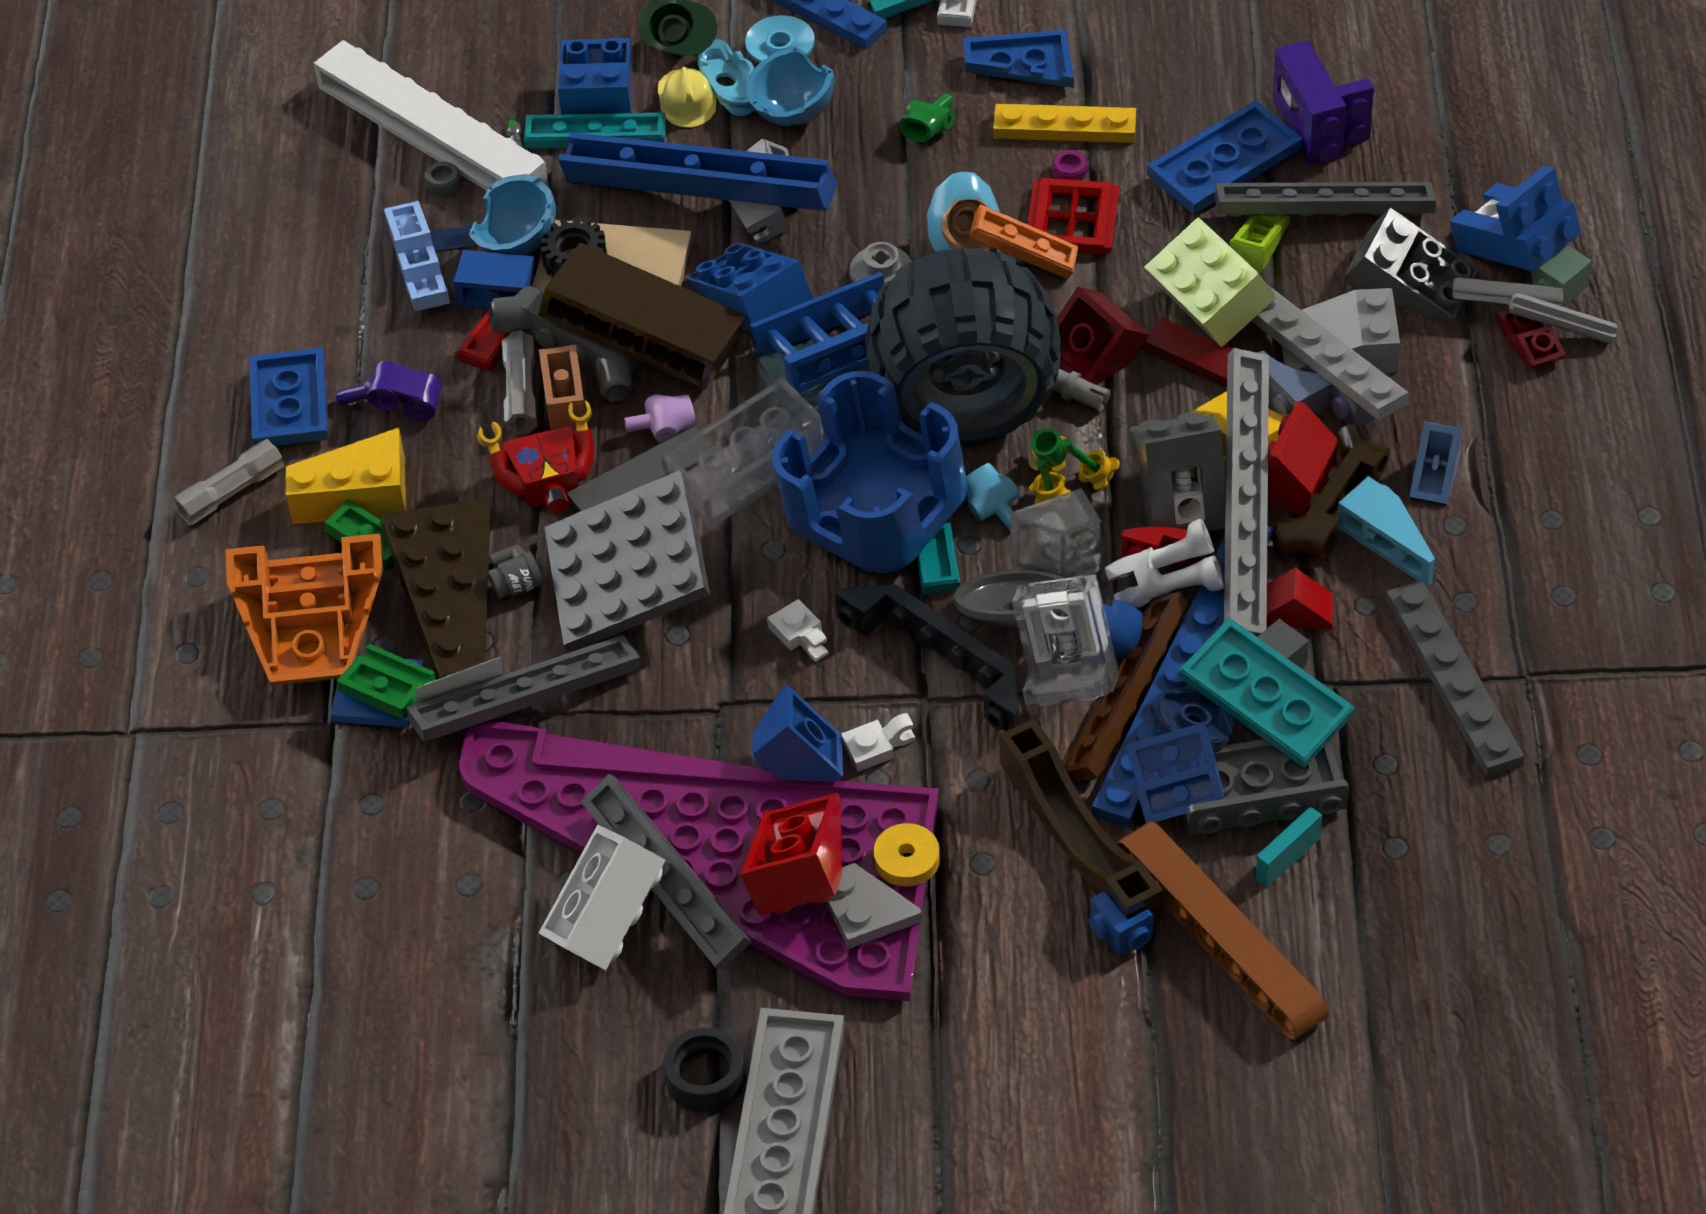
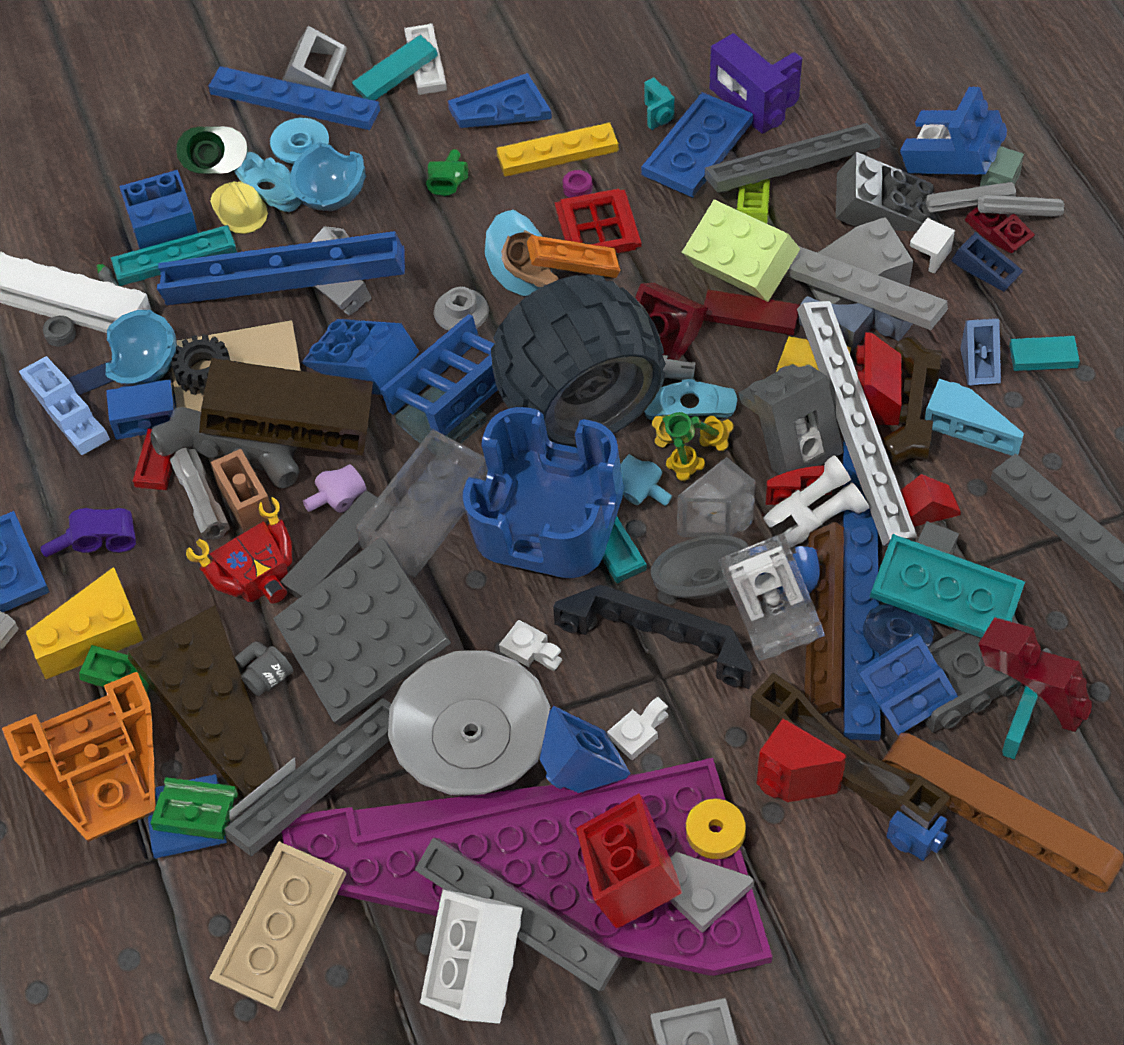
camera: 20 degrees left, 5 degrees up
(425, 816) = (278, 926): none -> tan plate
(691, 655) = (463, 695): none -> light grey dish
(1019, 818) = (798, 765): none -> red slope
(1109, 435) = (712, 400): none -> medium azure piece
(1202, 104) = (659, 102): none -> teal bracket
(1334, 809) = (1054, 678): none -> dark red arch
(1442, 332) = (935, 241): none -> white panel
(1491, 347) = (984, 250): none -> dark blue slope
(1512, 485) = (1044, 353): none -> teal tile

